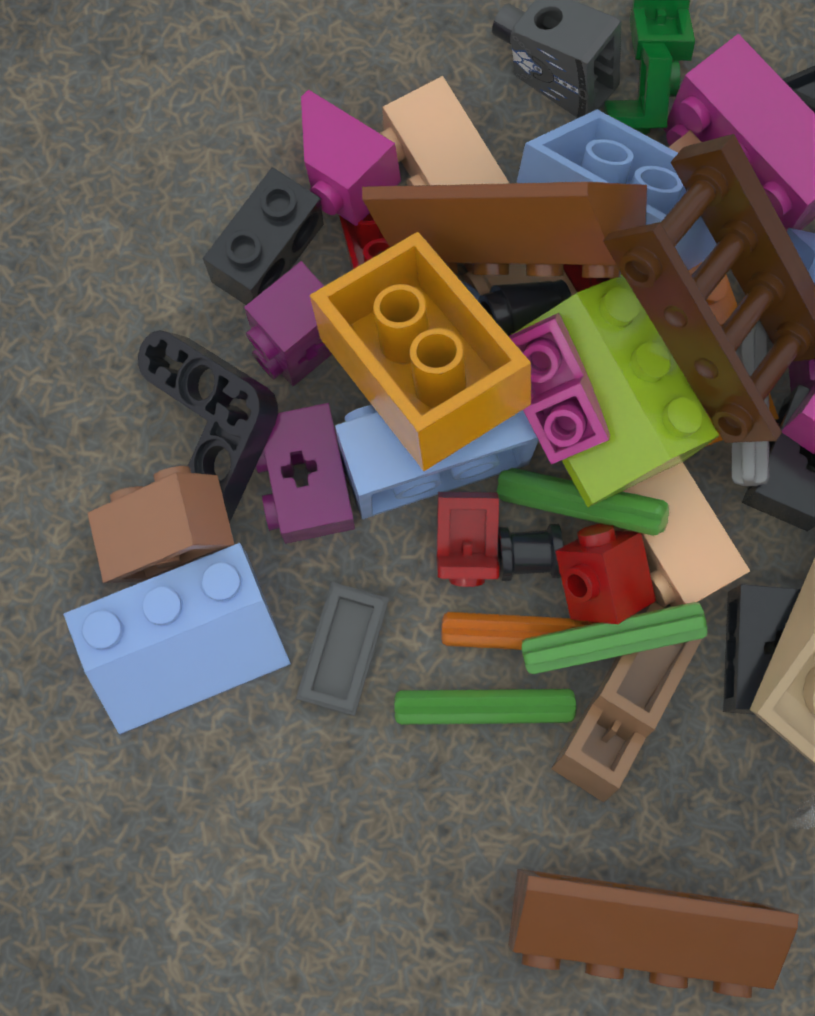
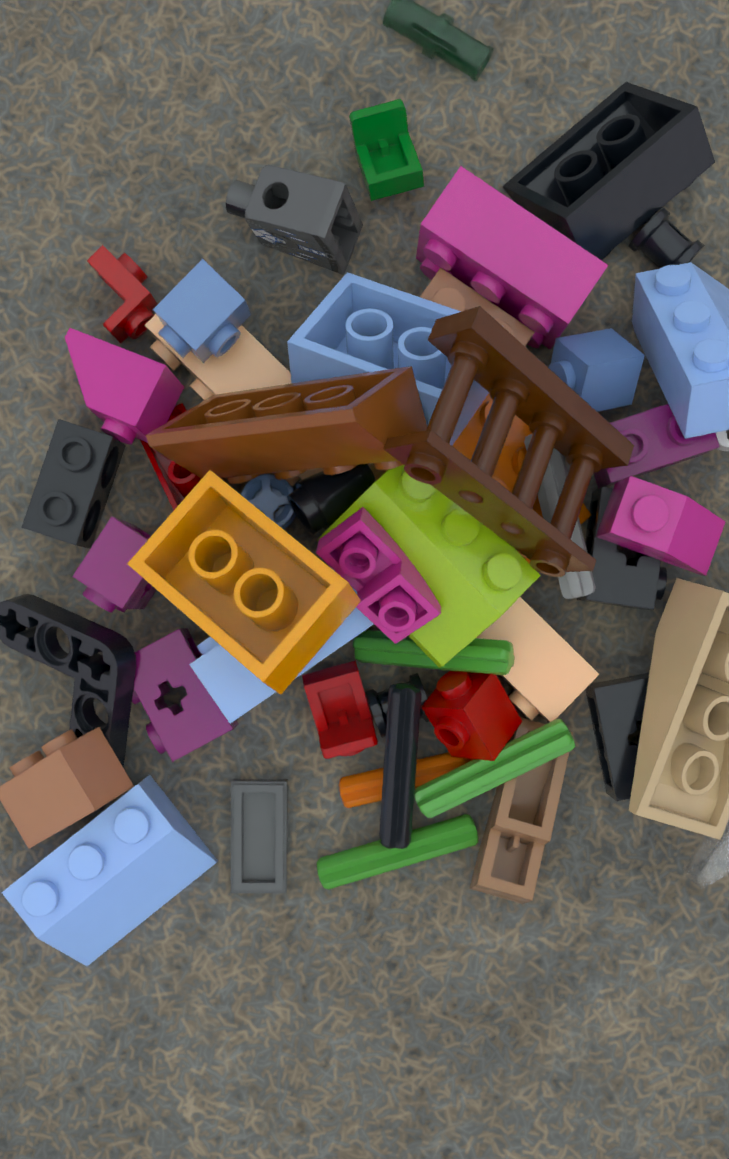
camera: 10 degrees left, 10 degrees up
(375, 72) = (126, 281): none -> red bracket
(445, 104) = (202, 314): none -> medium blue brick
(515, 607) = (400, 765): none -> black axle
(649, 931) = (587, 1006): dark orange slope -> none
(657, 82) = (395, 251): green bracket -> none

